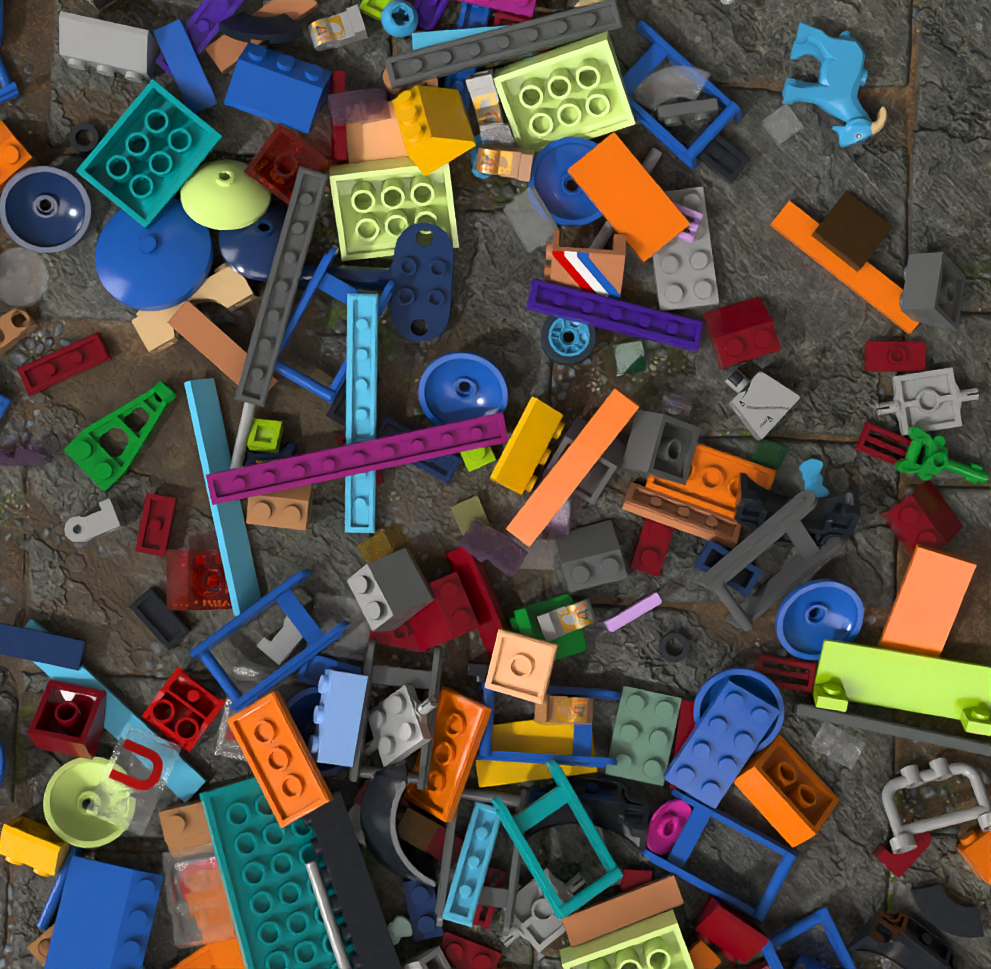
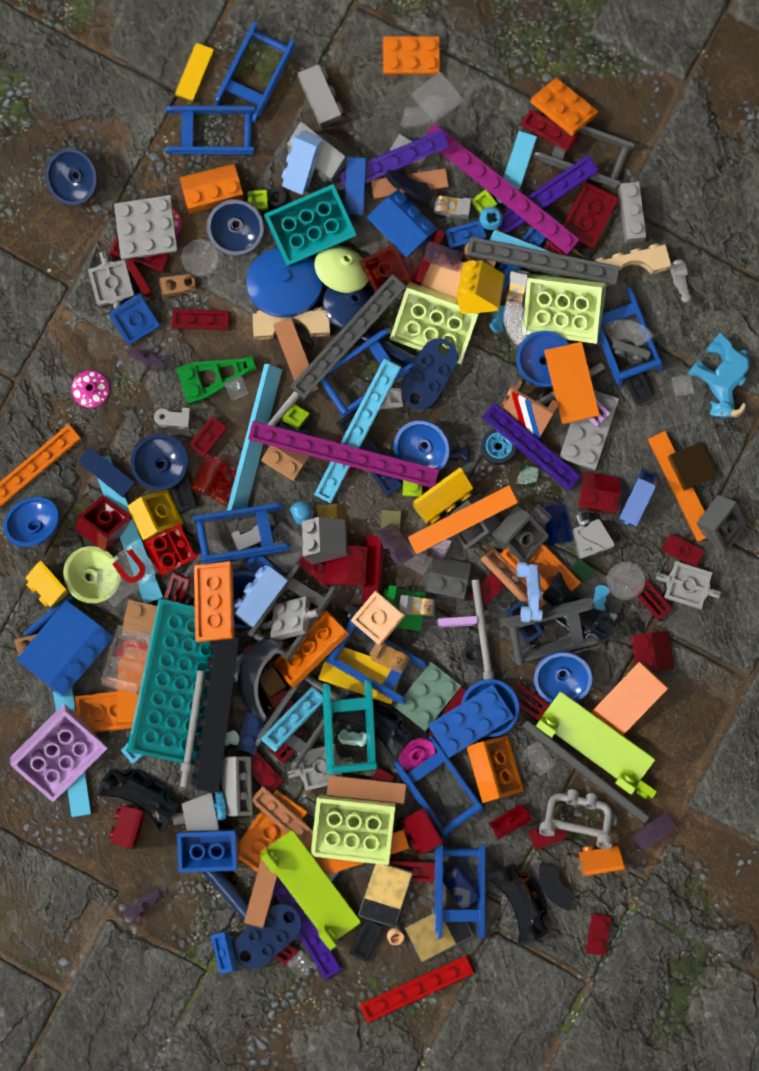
camera: 20 degrees right, 5 degrees down
(60, 153) = (258, 199): none -> lime plate
(87, 590) = (156, 450): none -> dark blue dish
(92, 69) = (301, 162): none -> light blue brick
(136, 670) = (154, 514): none -> yellow slope
(161, 436) = (236, 388): none -> clear plate
(218, 745) = (181, 578): none -> dark red tile
(340, 566) = (301, 511): none -> dark azure piece
(370, 63) = (461, 235): none -> blue plate
(389, 342) = (393, 399): none -> white slope
(505, 161) = (510, 328): leg -> none
(522, 373) = (462, 454): none -> dark blue piece
(530, 219) = (509, 368): clear piece -> none
(567, 845) = (352, 738): none -> light aqua piece
(707, 408) = (558, 526): none -> clear blue slope
(711, 661) = (488, 673): none -> light grey bar
(724, 522) = (533, 580): none -> light blue plate
(800, 312) = (638, 498): none -> slope
(838, 438) = (625, 581): none -> clear tile
(842, 853) = (510, 821): none -> dark red plate
(935, 459) = (676, 620): green piece -> none

